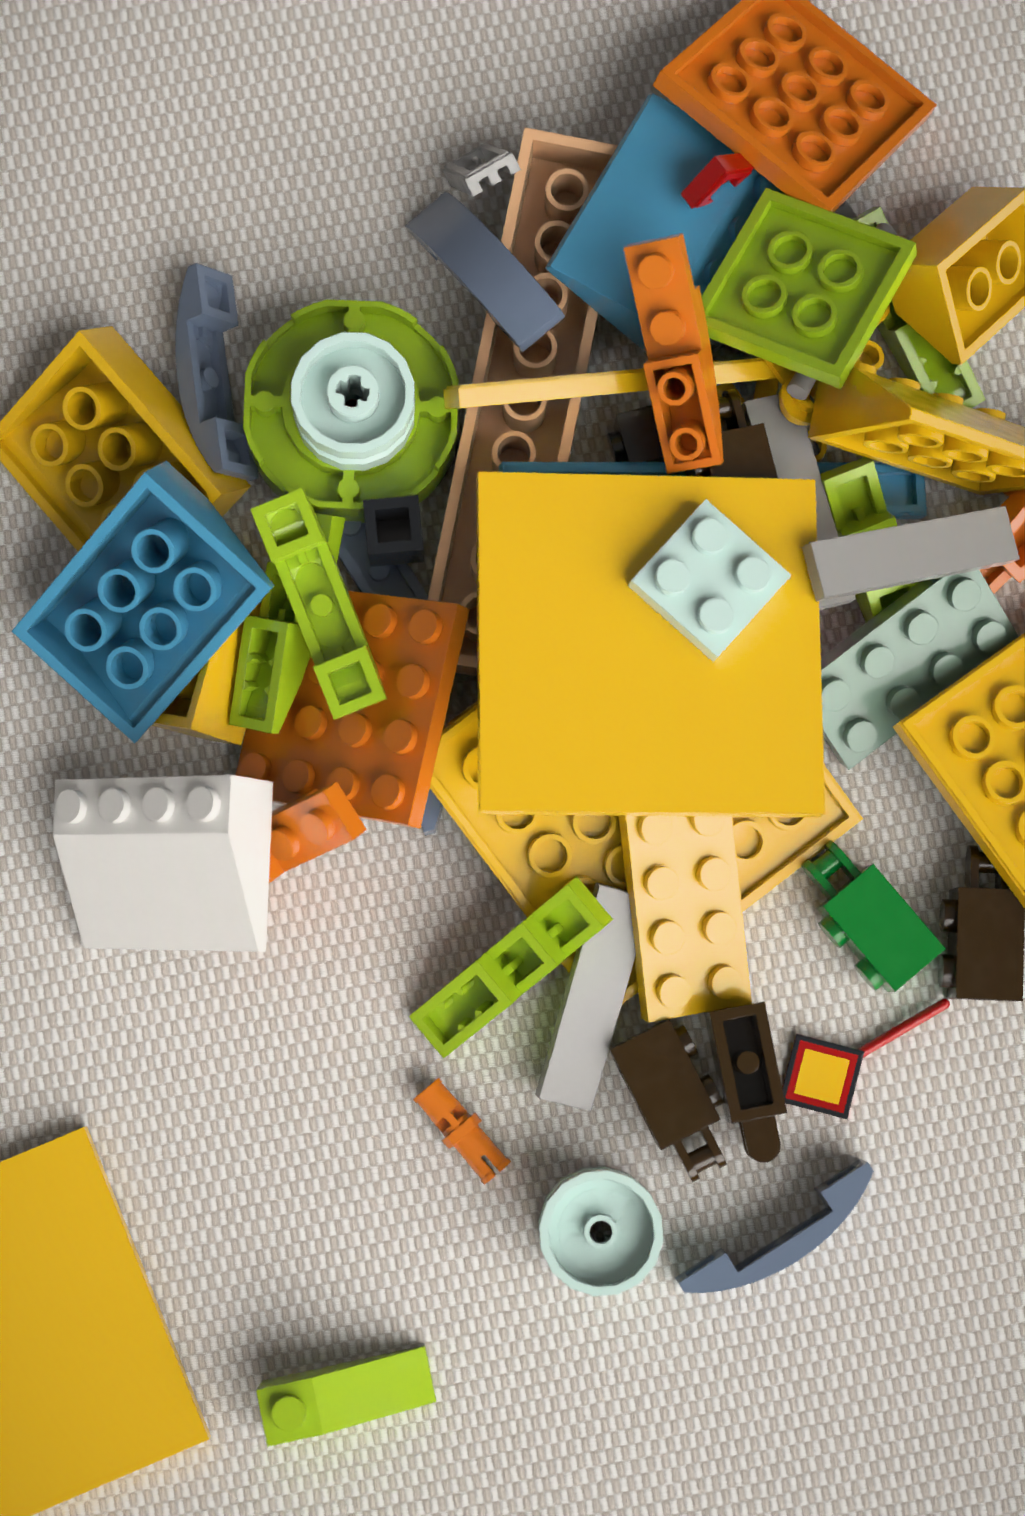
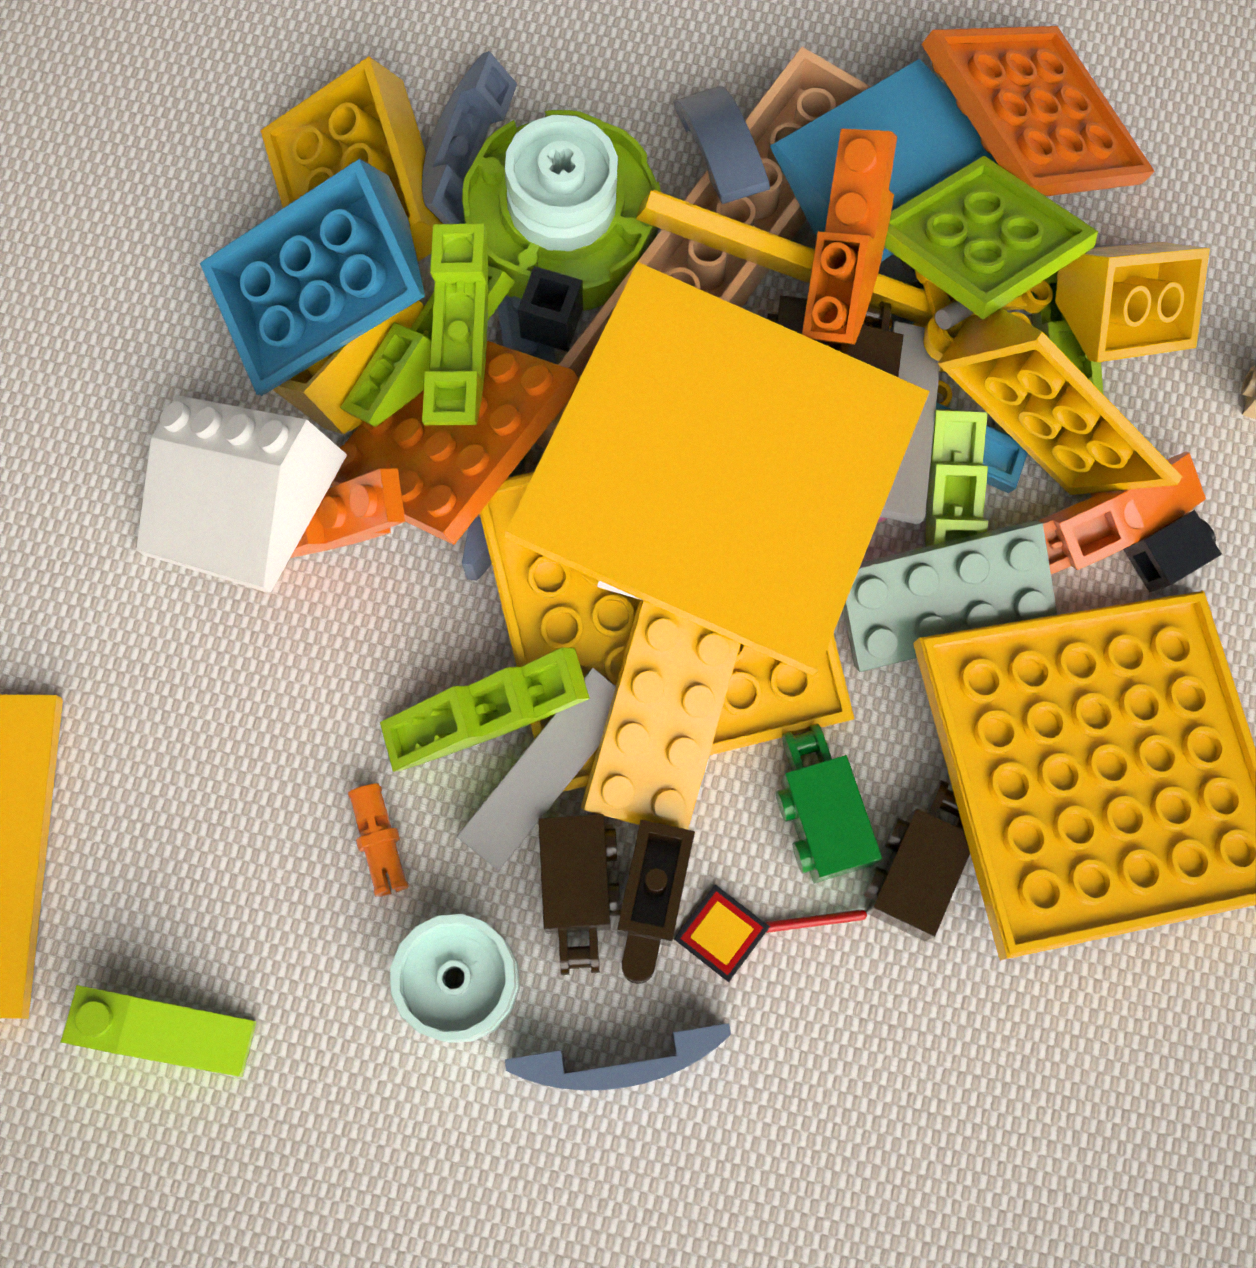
camera: 25 degrees right, 10 degrees down
(468, 169) = (760, 64): light grey tile -> none
(709, 580) = (799, 428): light aqua plate -> none
(713, 175) = (944, 127): red tile -> none
(910, 553) = (989, 488): light grey tile -> none

